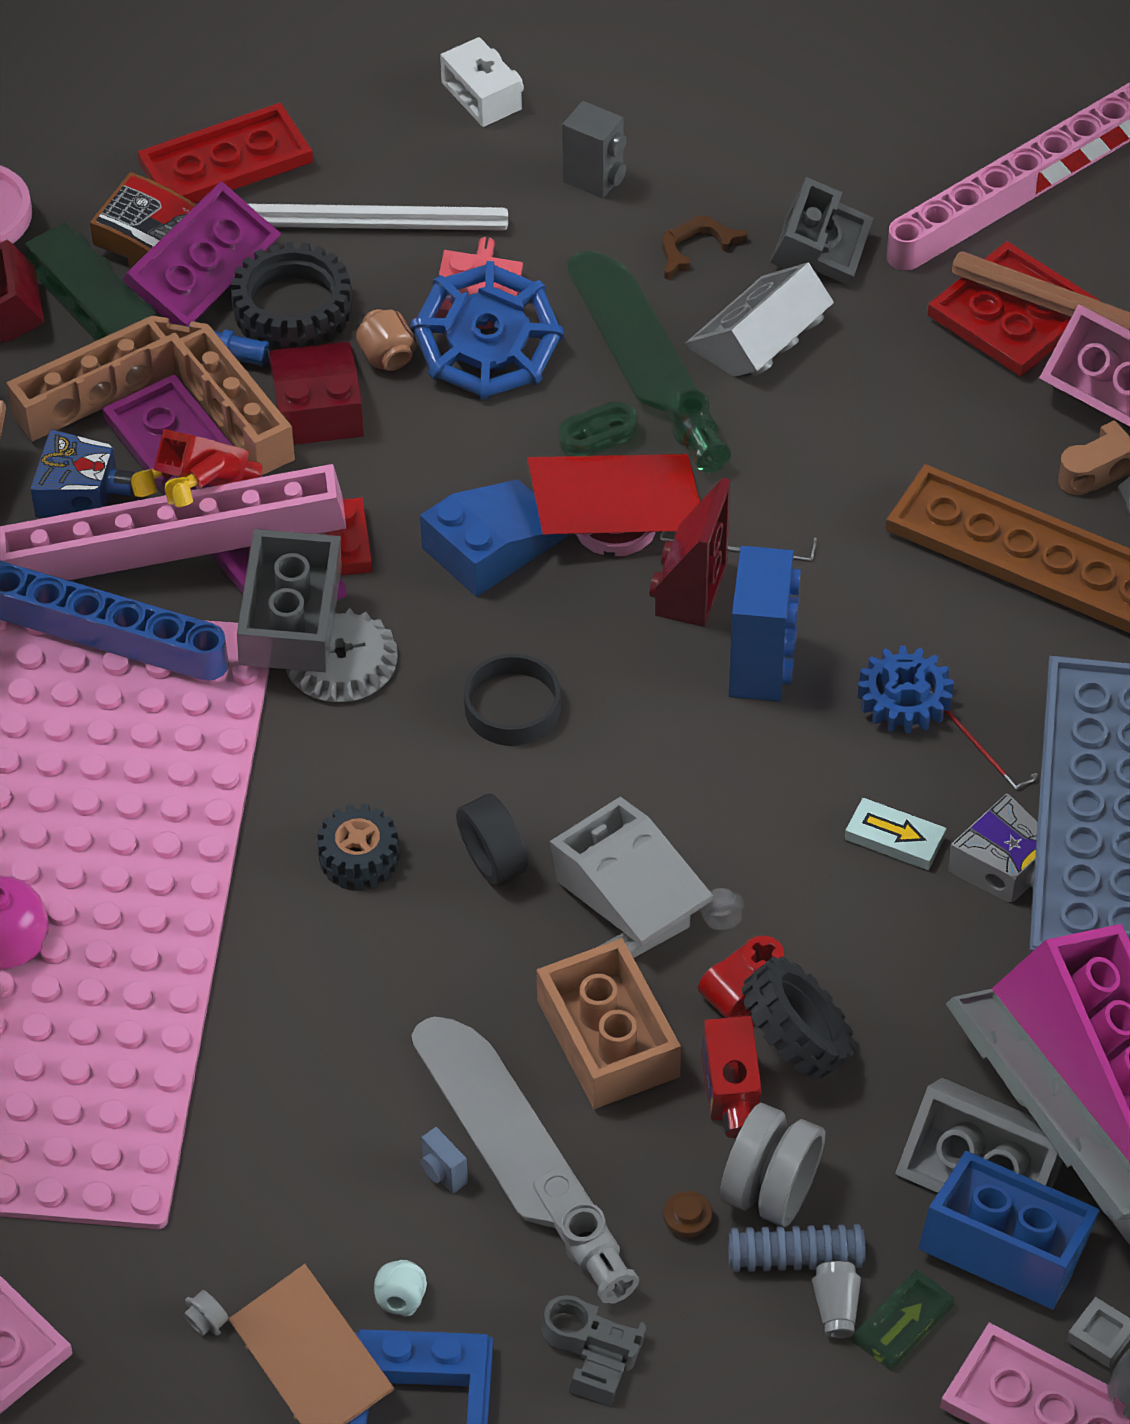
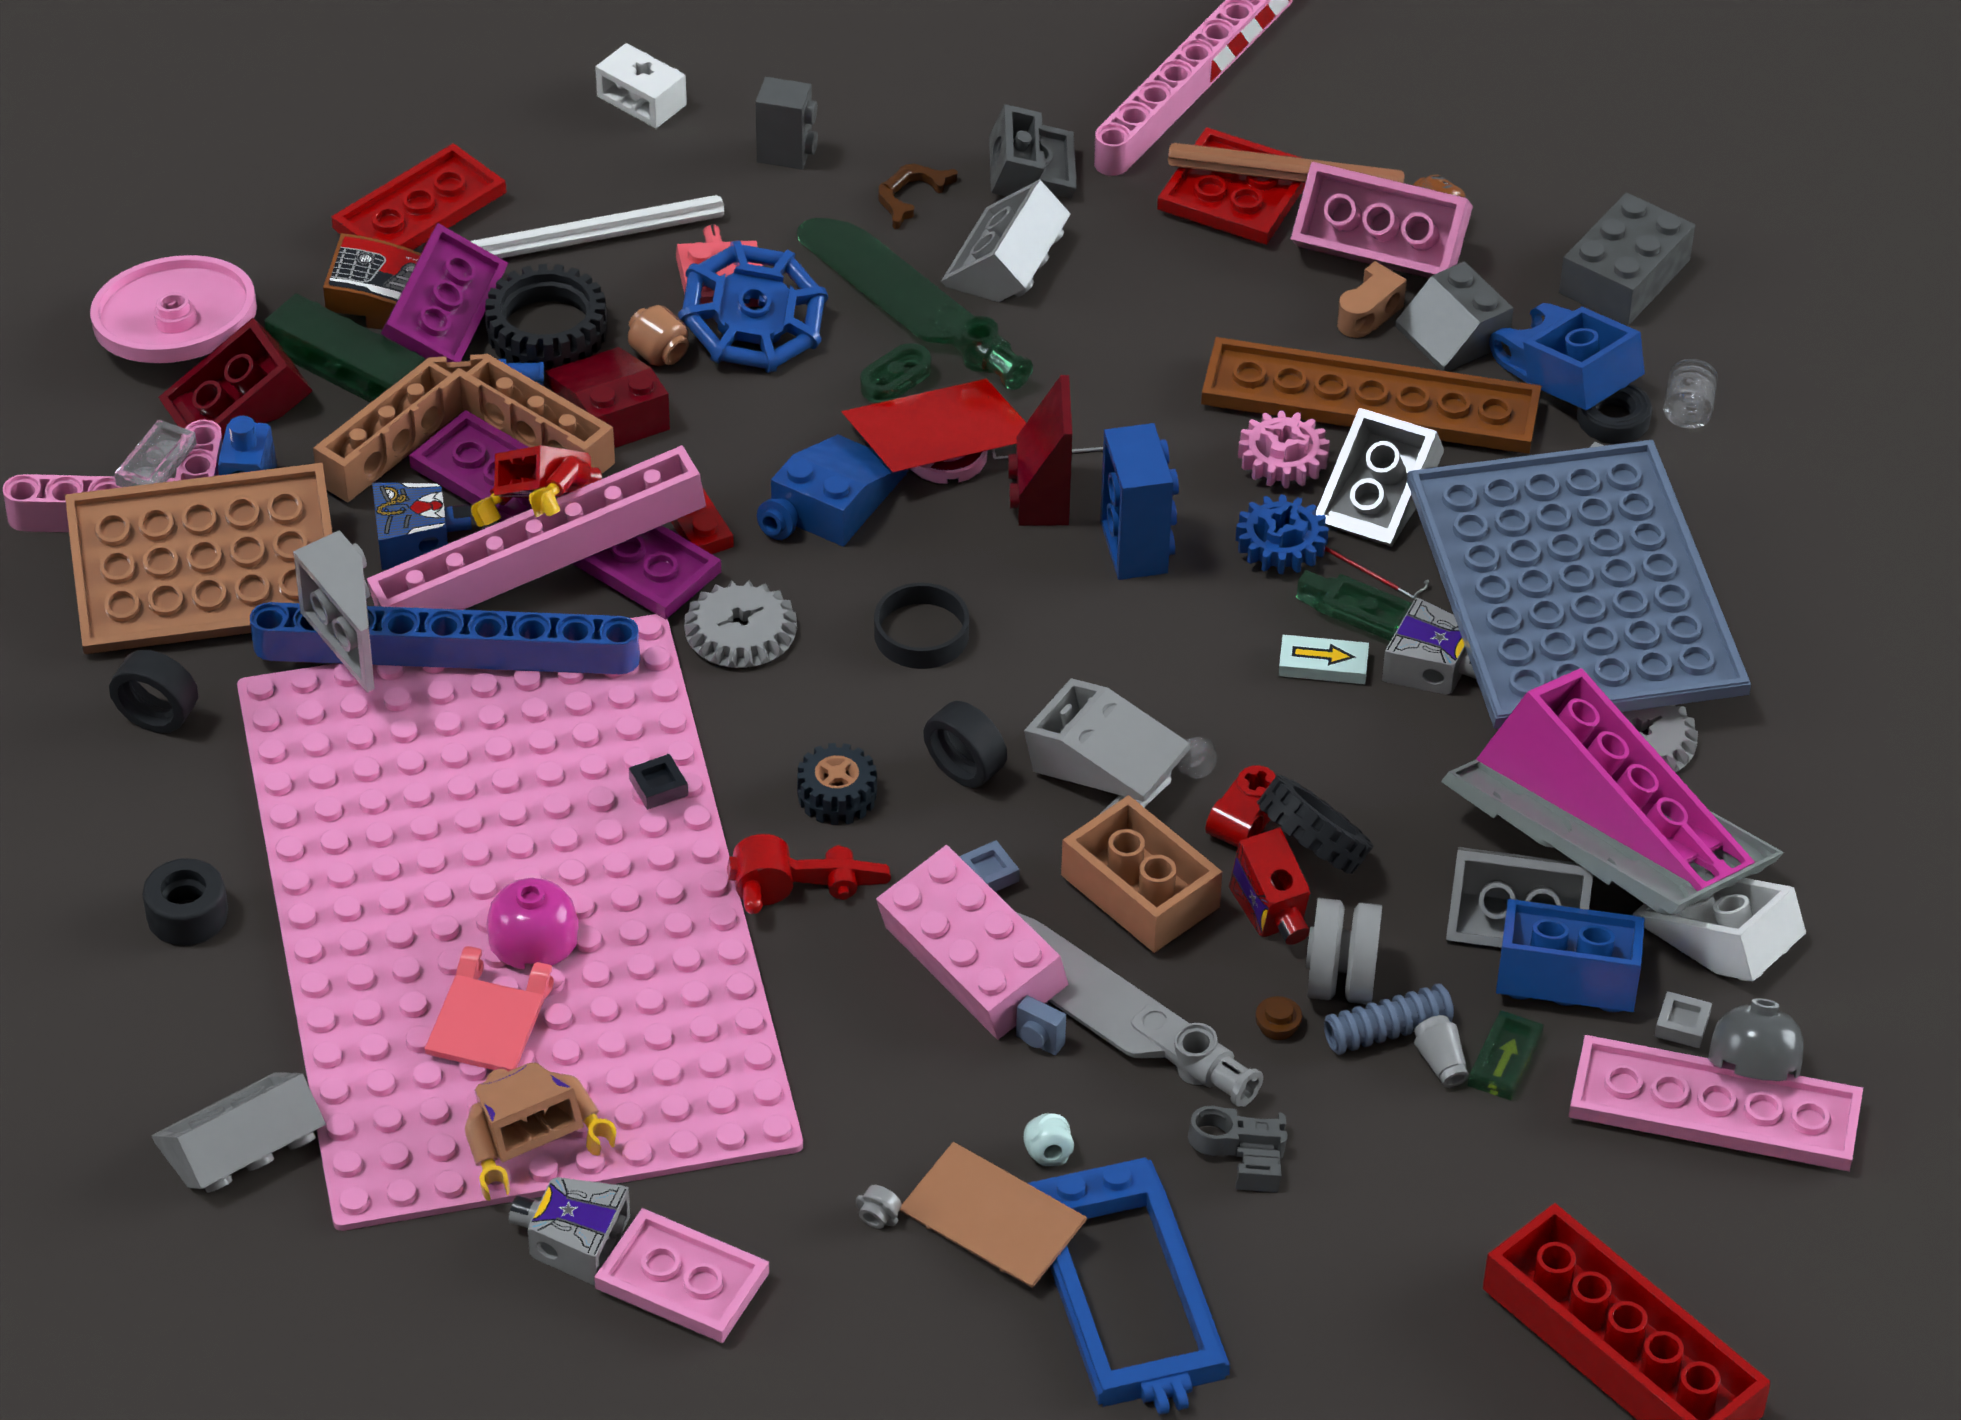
camera: 20 degrees left, 5 degrees down
(183, 803) = (658, 781): none -> black plate
(249, 919) = (767, 872): none -> red piece
(289, 600) = (684, 580): dark grey brick -> none
(409, 1052) = (971, 940): none -> bright pink brick
(420, 553) = (777, 518): none -> blue plate
(465, 976) = (992, 865): none -> sand blue plate
(944, 598) = (1283, 449): none -> bright pink gear
(947, 780) = (1353, 603): none -> clear green hinge
(1011, 657) = (1369, 482): none -> light grey slope

